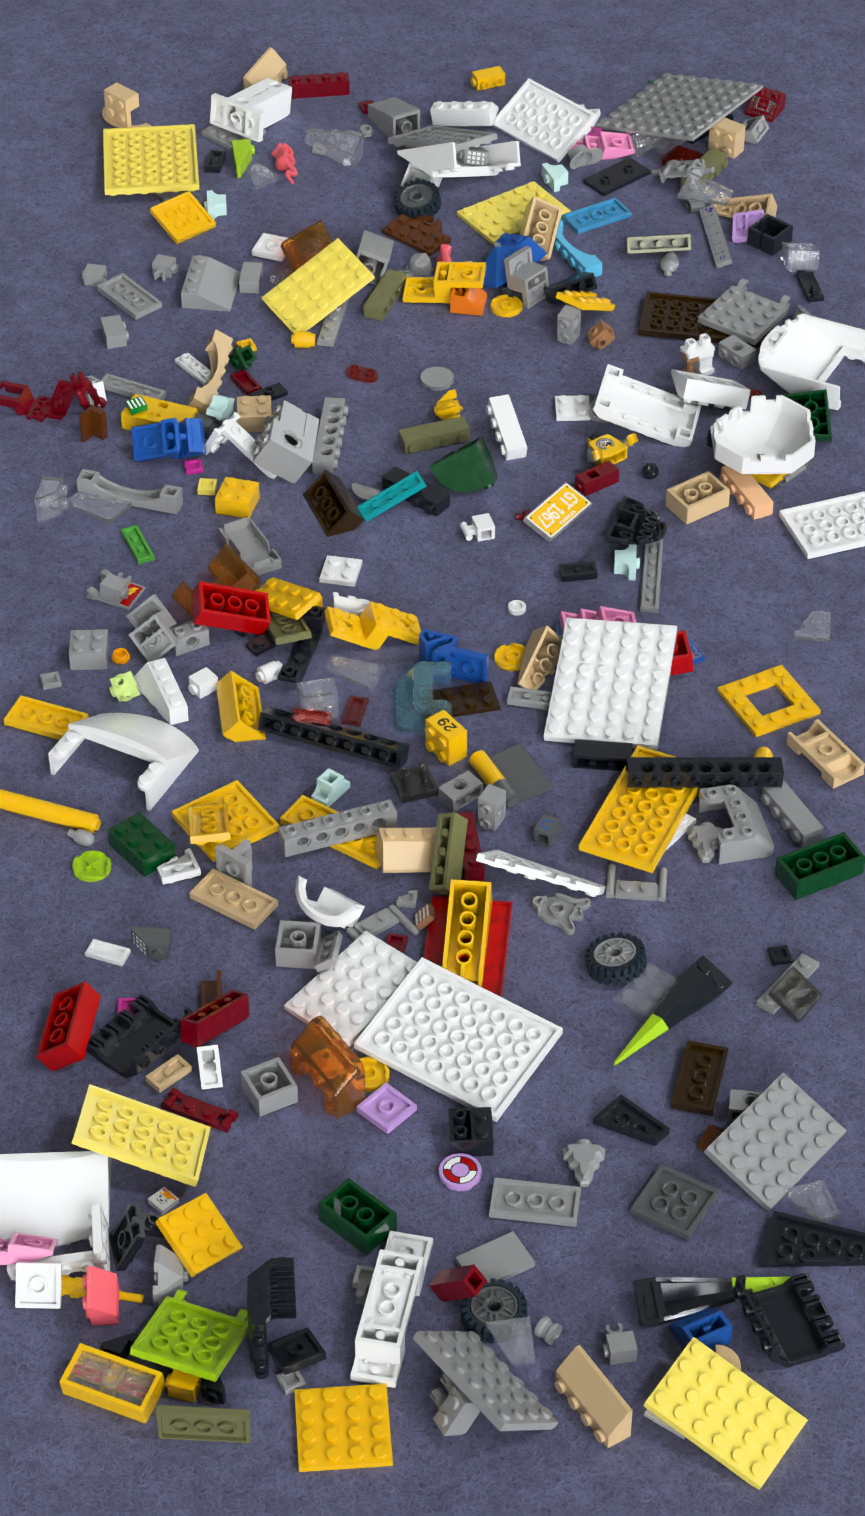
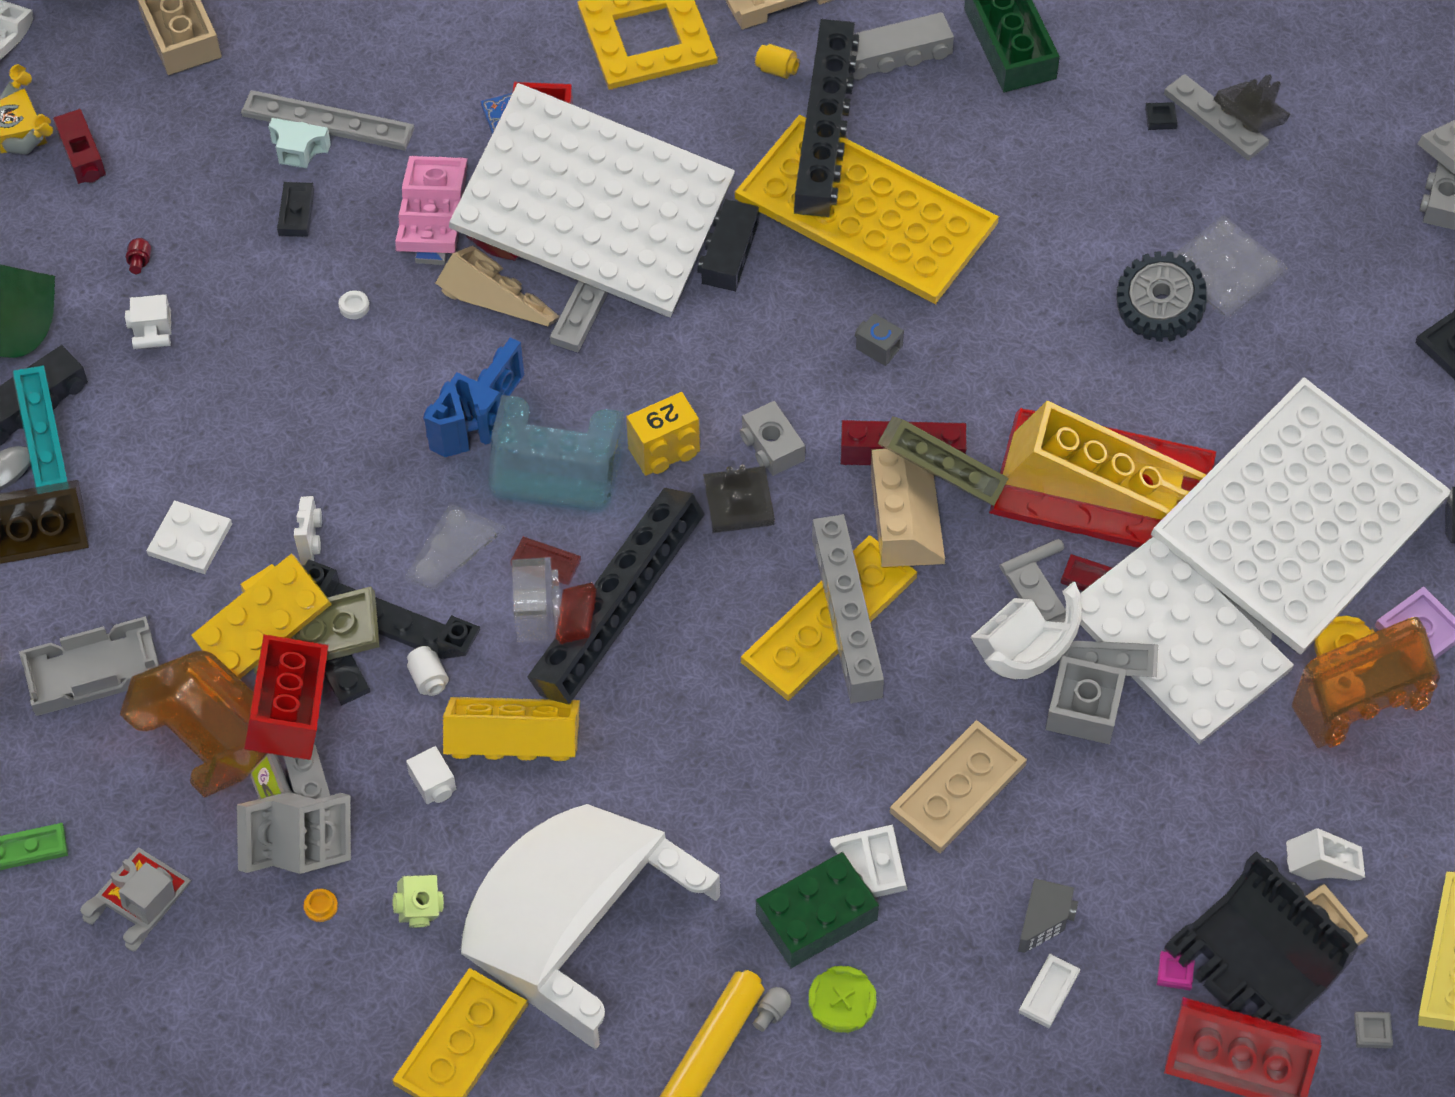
camera: 80 degrees left, 15 degrees up
(50, 680) = (351, 1029): light grey tile -> none
(89, 649) = (299, 951): light grey brick -> none
(162, 691) = (438, 840): white wedge -> none
(199, 1110) = (1408, 886): dark red plate -> none
(209, 824) = (819, 788): yellow plate -> none
(211, 989) = (1170, 837): reddish brown panel -> none
(214, 1018) = (1251, 829): dark red brick -> none
(235, 862) = (900, 763): light grey bracket -> none
(245, 814) = (774, 780): yellow plate -> none
(269, 1086) = (1383, 775): light grey brick -> none
(330, 787) = (735, 614): light aqua brick -> none
(373, 625) = (365, 499): yellow bracket -> none
(408, 900) = (988, 544): light grey tile -> none
(424, 916) = (1038, 524): medium nougat tile -> none
(469, 698) = (557, 394): dark brown plate -> none
(491, 807) = (832, 396): light grey brick -> none
(510, 656) = (478, 332): yellow tile -> none
(513, 772) = (743, 369): dark grey door -> none
(534, 870) = (965, 375): white wing -> none
(557, 512) = (145, 211): tile -> none
(561, 910) = (1040, 354): light grey tile -> none
(635, 525) = (222, 118): black brick -> none
(635, 889) = (1010, 259): light grey plate -> none
(650, 471) = (80, 77): black plate -> none
(693, 991) = (1233, 217): black plate -> none
(699, 1078) = (1386, 243): dark brown plate -> none
(705, 840) = (932, 154): light grey rock -> none
(749, 834) = (871, 100): light grey windscreen -> none

